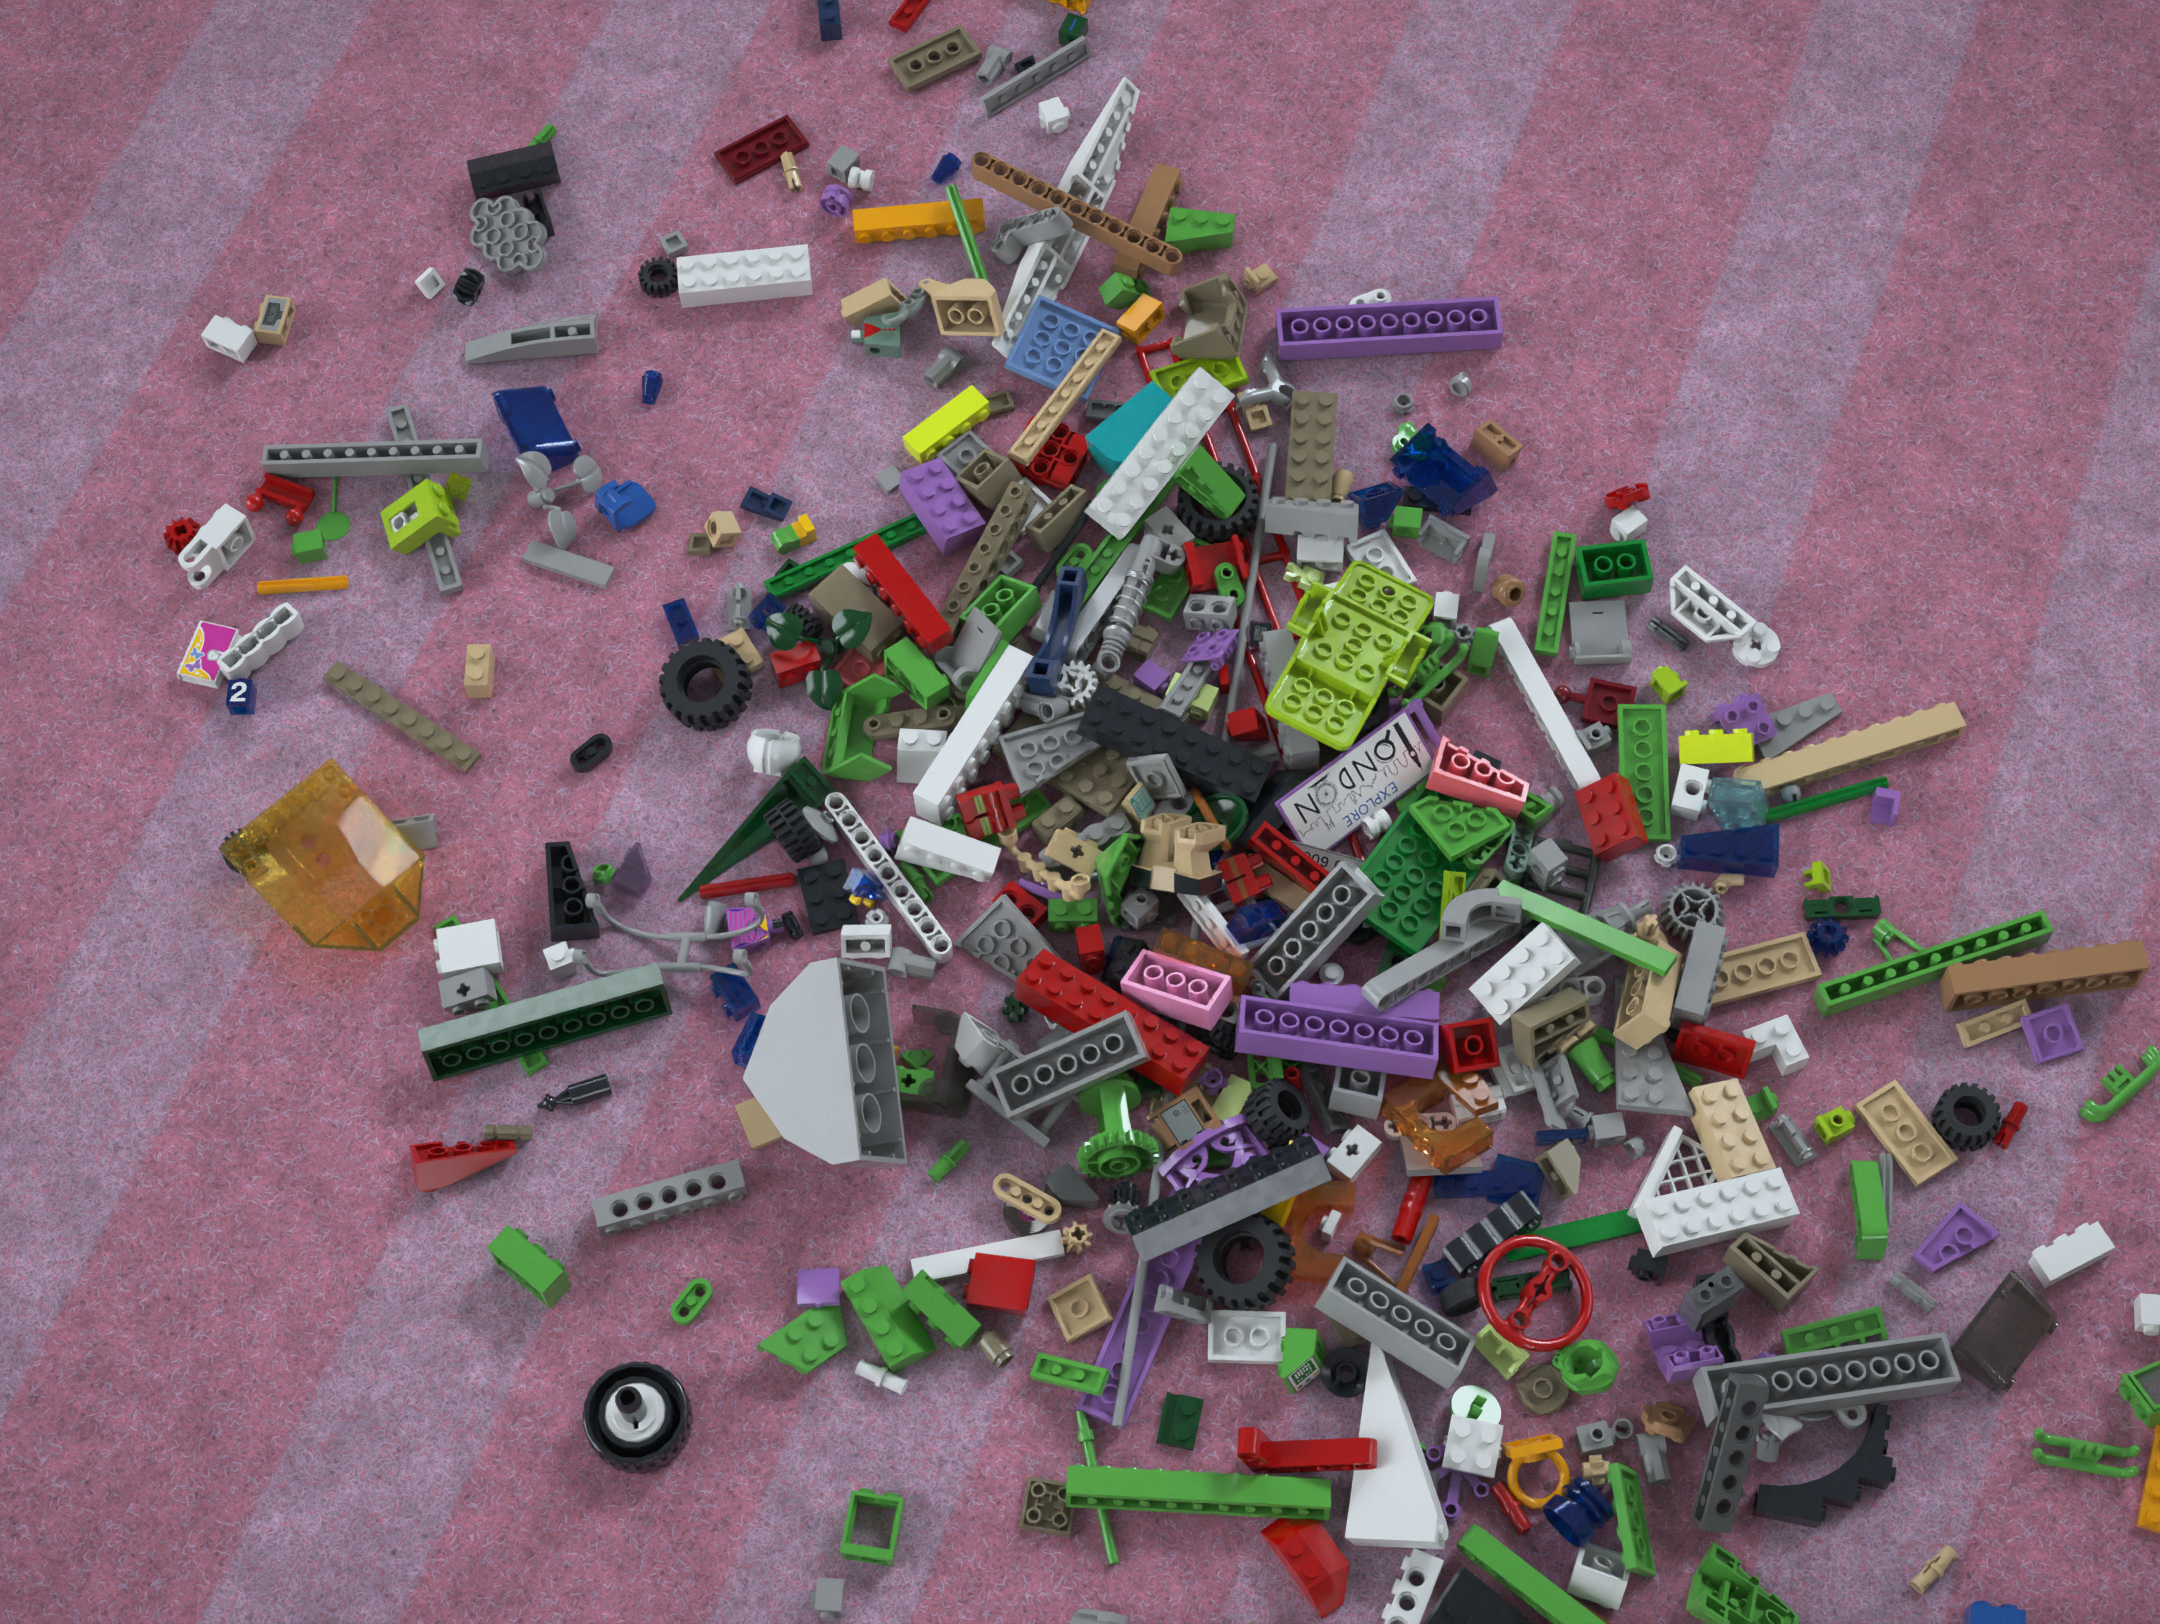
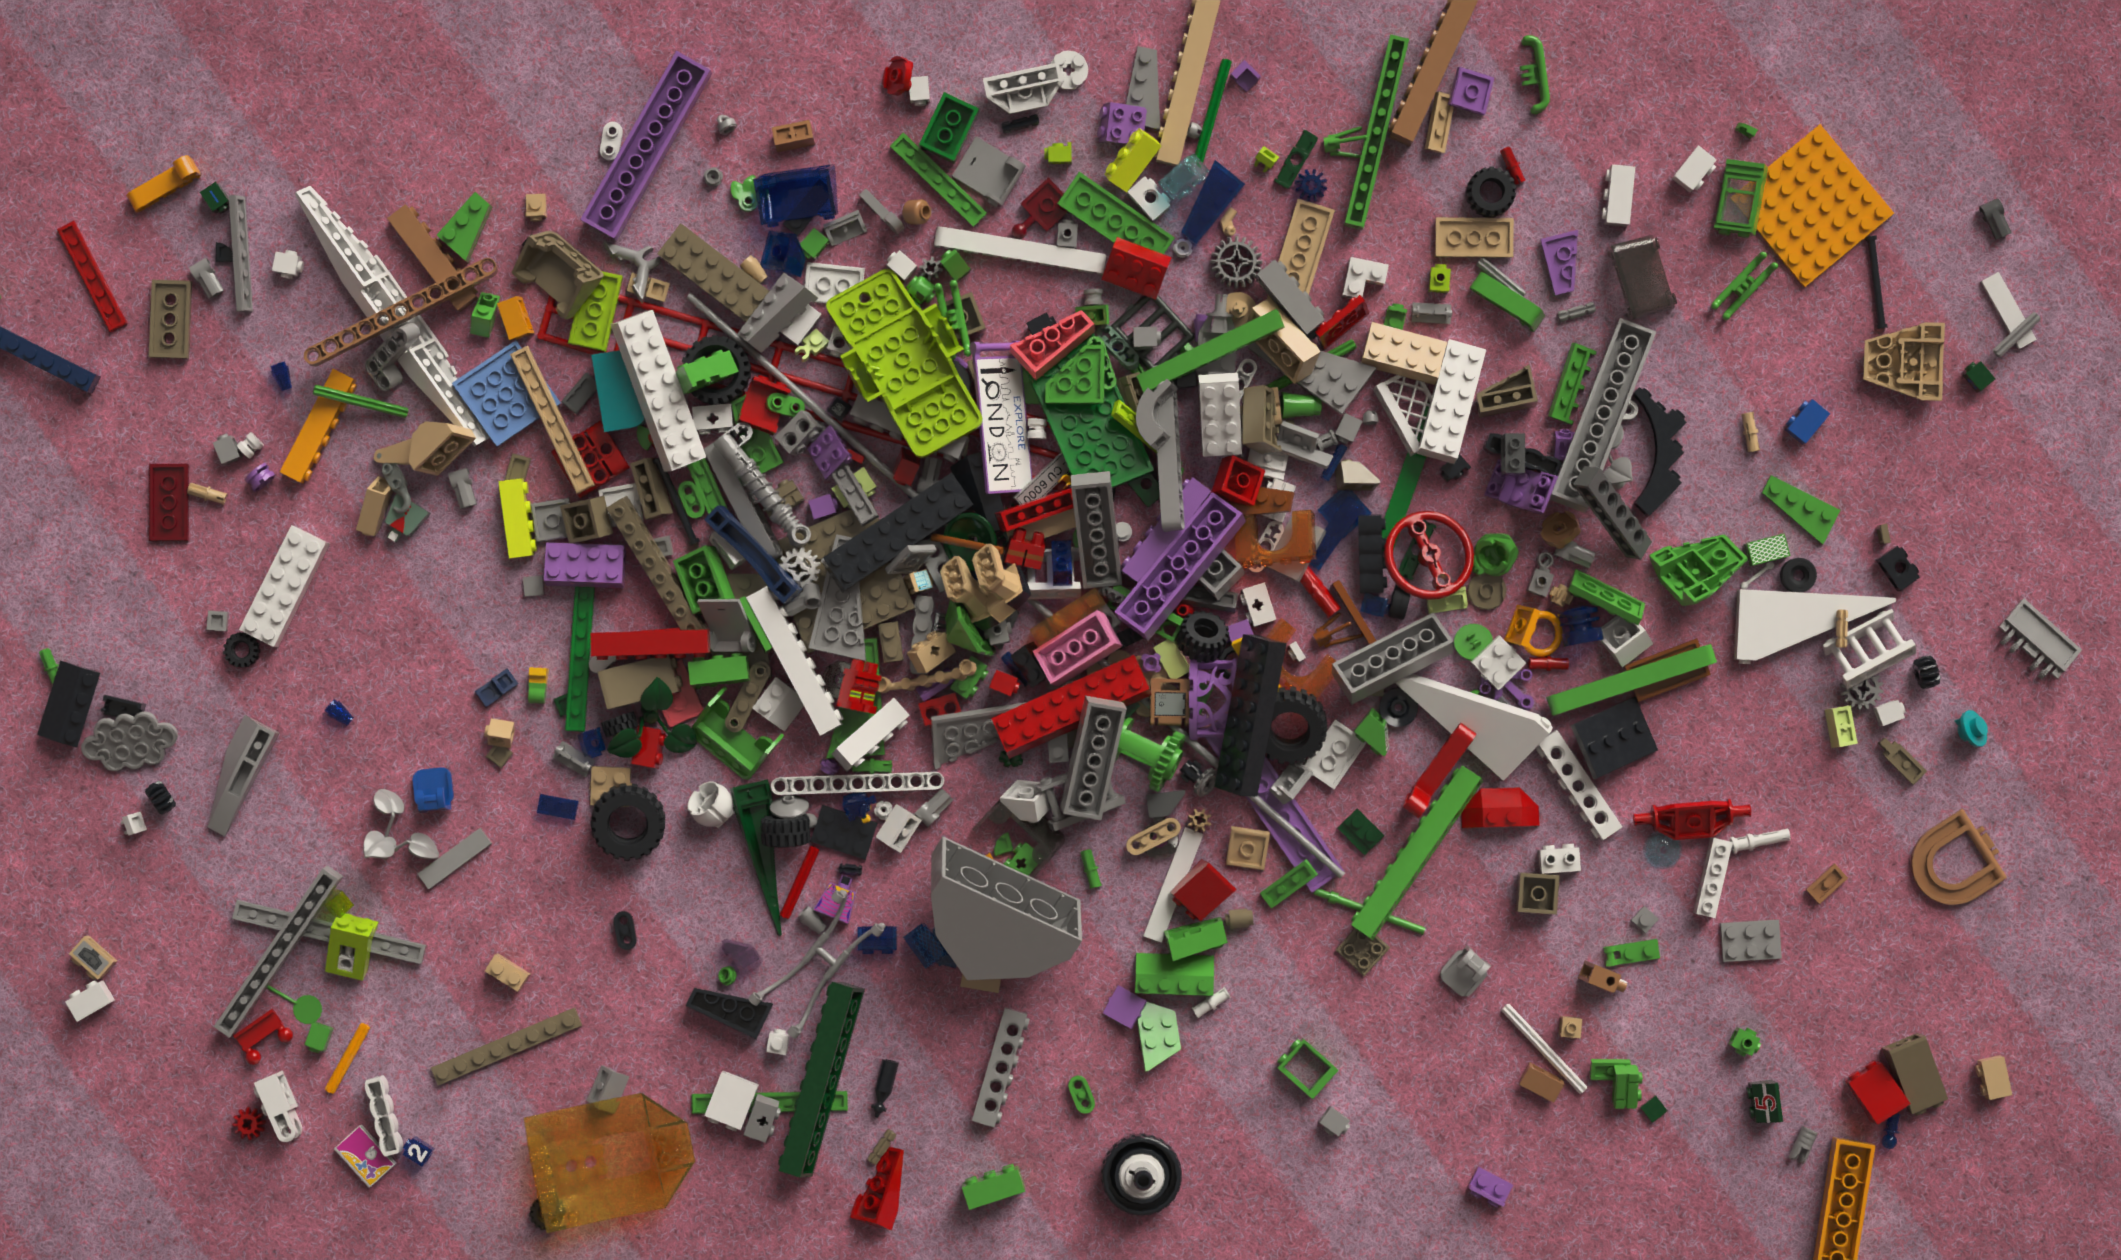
camera: 55 degrees left, 25 degrees up
(536, 424) = (323, 818): clear blue windscreen -> none

